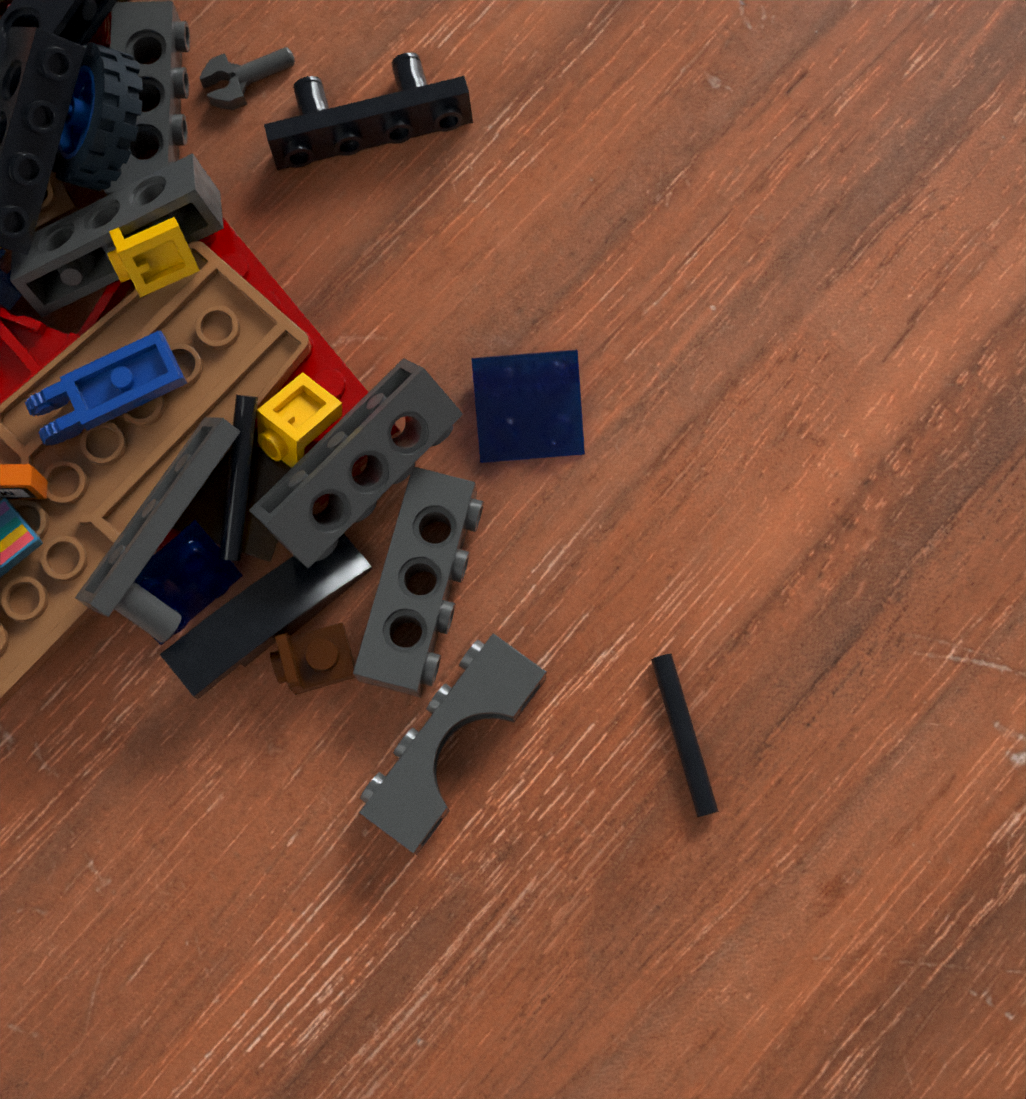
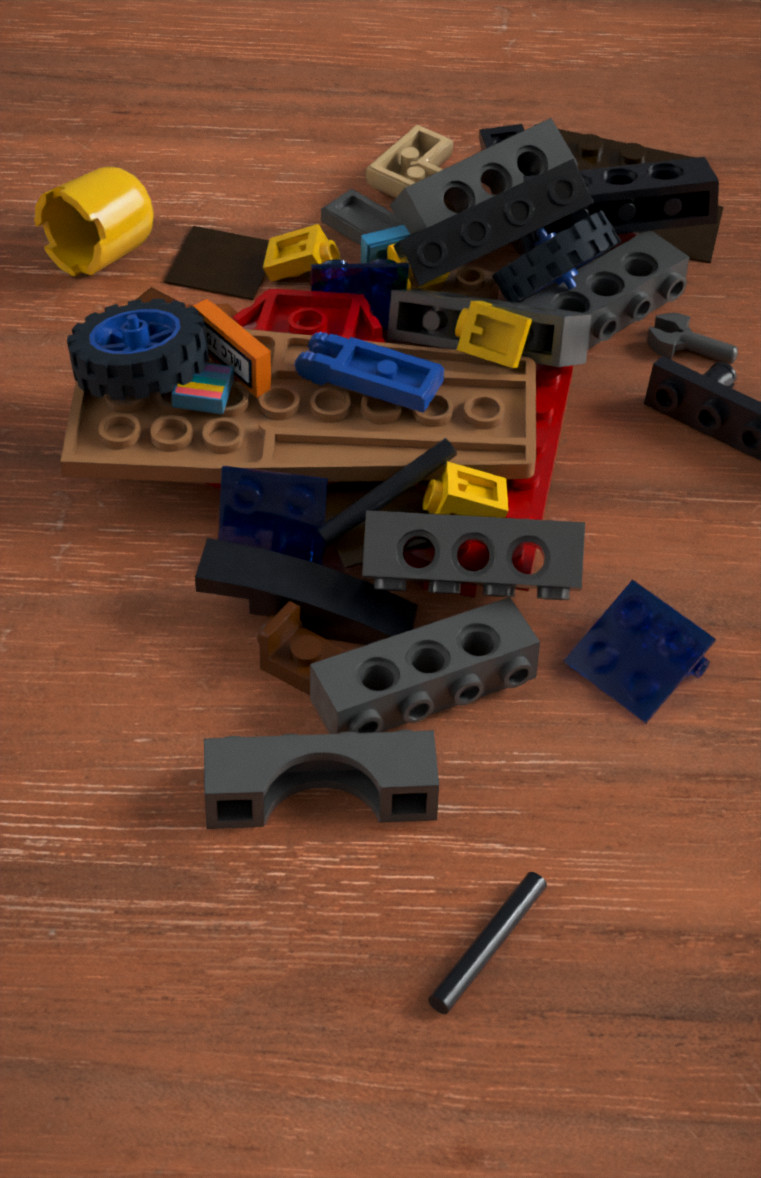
camera: 45 degrees right, 30 degrees down
(113, 580) = (233, 450): dark grey piece -> none

